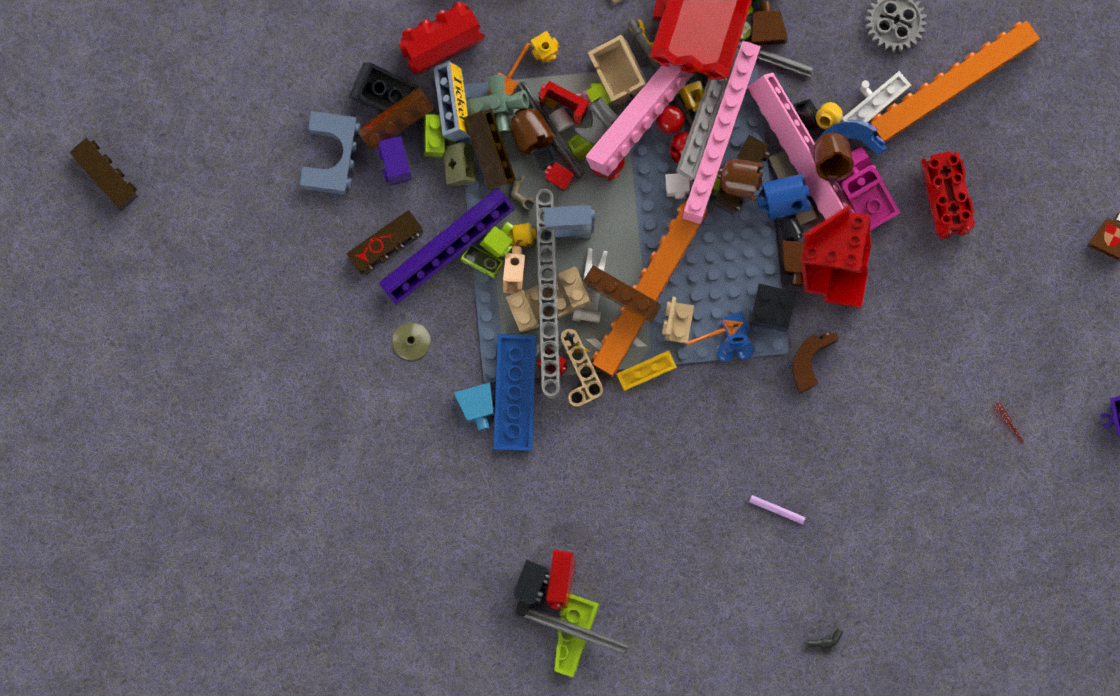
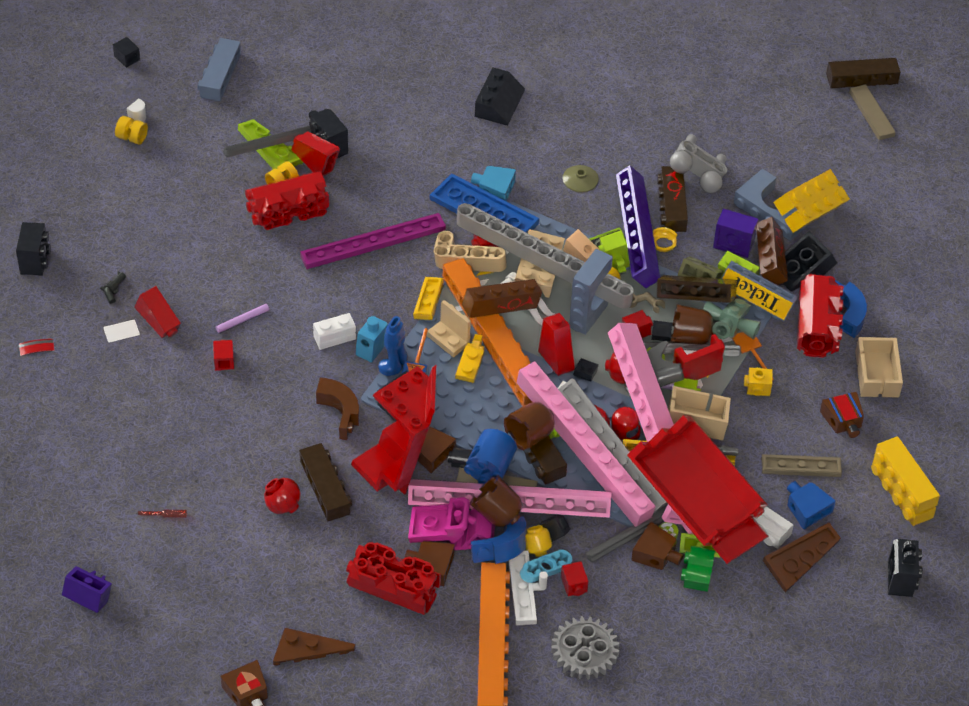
camera: 120 degrees right, 30 degrees down
(146, 141) = (872, 112): none -> dark tan tile
(316, 116) = (812, 200): none -> yellow piece
(334, 250) = (701, 163): none -> light grey piece
(368, 473) = (499, 97): none -> black slope
(403, 19) = (856, 309): none -> blue arch
(443, 213) = (667, 233): none -> yellow piece
(605, 591) = (283, 171): none -> yellow wheel
(617, 462) = (372, 241): none -> magenta plate
(630, 192) = (585, 369): none -> black plate
(631, 563) = (280, 201): none -> red brick
(632, 222) = (556, 344): none -> red slope
(690, 287) = (470, 360): none -> yellow hinge
(725, 381) = (372, 334): none -> dark azure torso
(740, 419) = (334, 331): none -> white brick
(829, 491) = (223, 355): none -> red brick
(830, 578) = (157, 312): none -> red slope
(840, 89) = (550, 559): none -> medium azure beam
(841, 67) = (574, 579): none -> red brick
(861, 600) = (121, 331): none -> white sticker
(892, 317) = (324, 482): none -> dark brown brick
(903, 183) = (437, 554): none -> reddish brown torso
(929, 655) = (36, 346): none -> red sticker
(934, 335) = (282, 495): none -> red plant
(1045, 227) = (301, 645): none -> reddish brown wing

